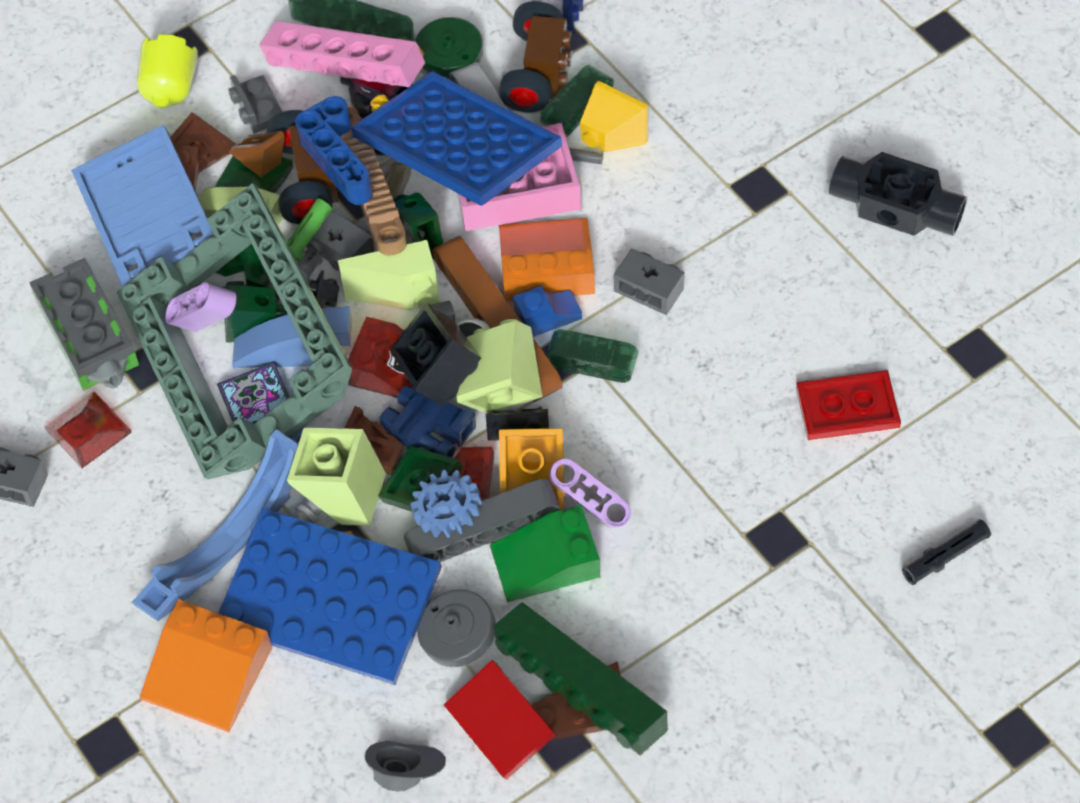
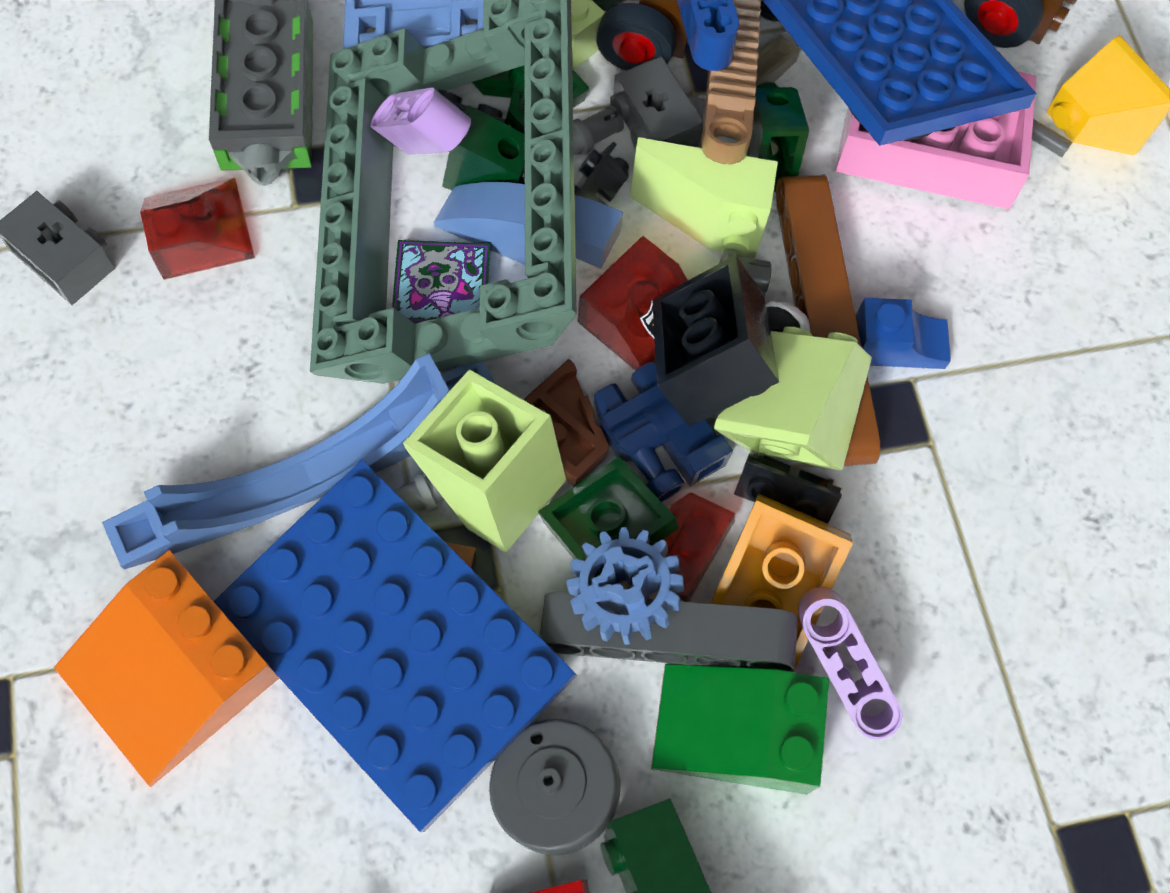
camera: 15 degrees right, 10 degrees up
(308, 228) = (616, 77): bright green pin -> none
(547, 255) = (937, 257): orange slope -> none
(572, 100) = (1063, 51): clear green beam -> none
(592, 355) = (940, 435): clear green beam -> none
(649, 281) = (1067, 358): dark grey brick -> none

